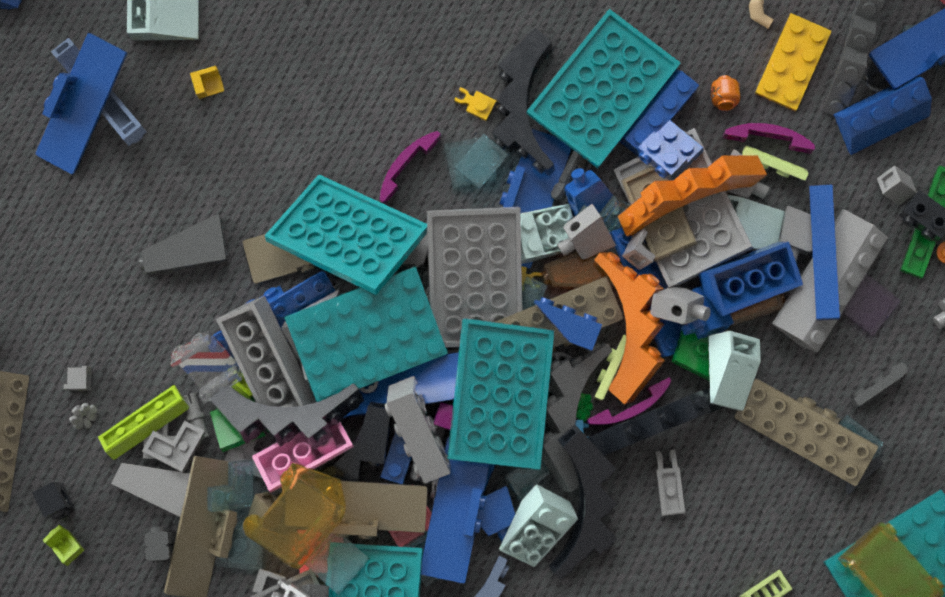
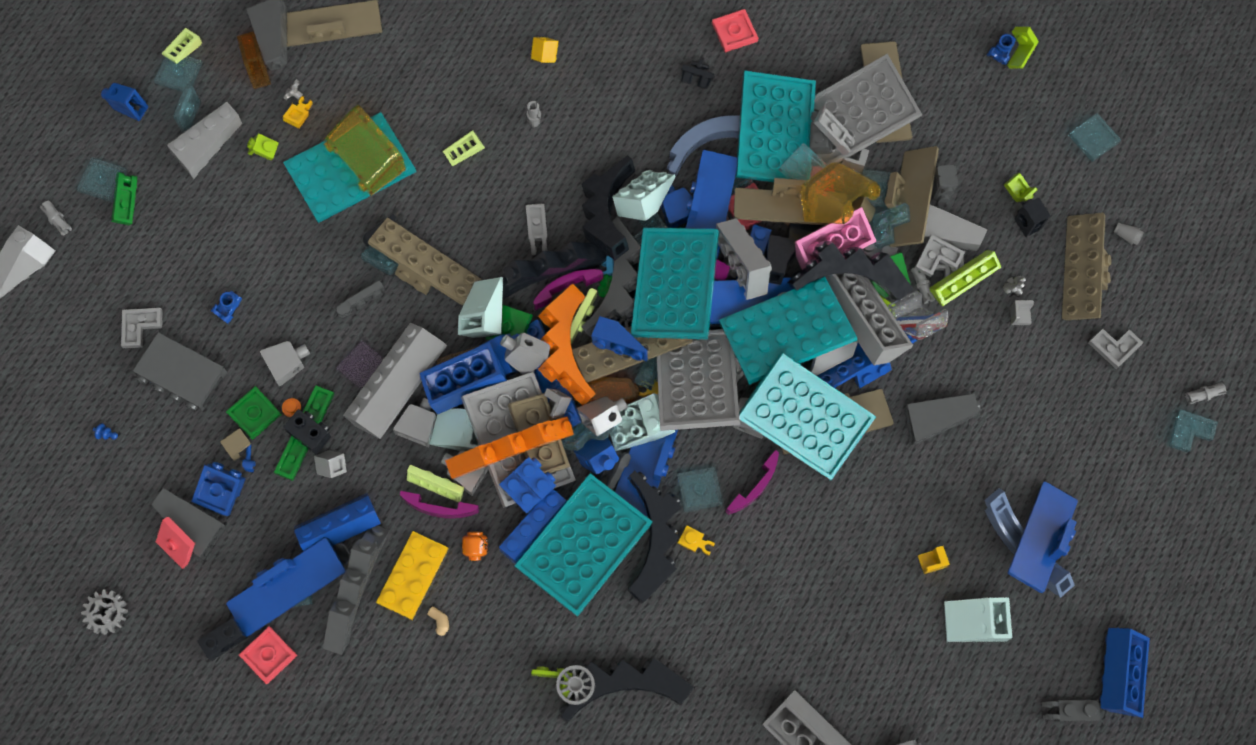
camera: 175 degrees right, 10 degrees down
(481, 161) = (691, 484): clear light blue plate -> none
(824, 252) = (399, 399): blue tile -> none

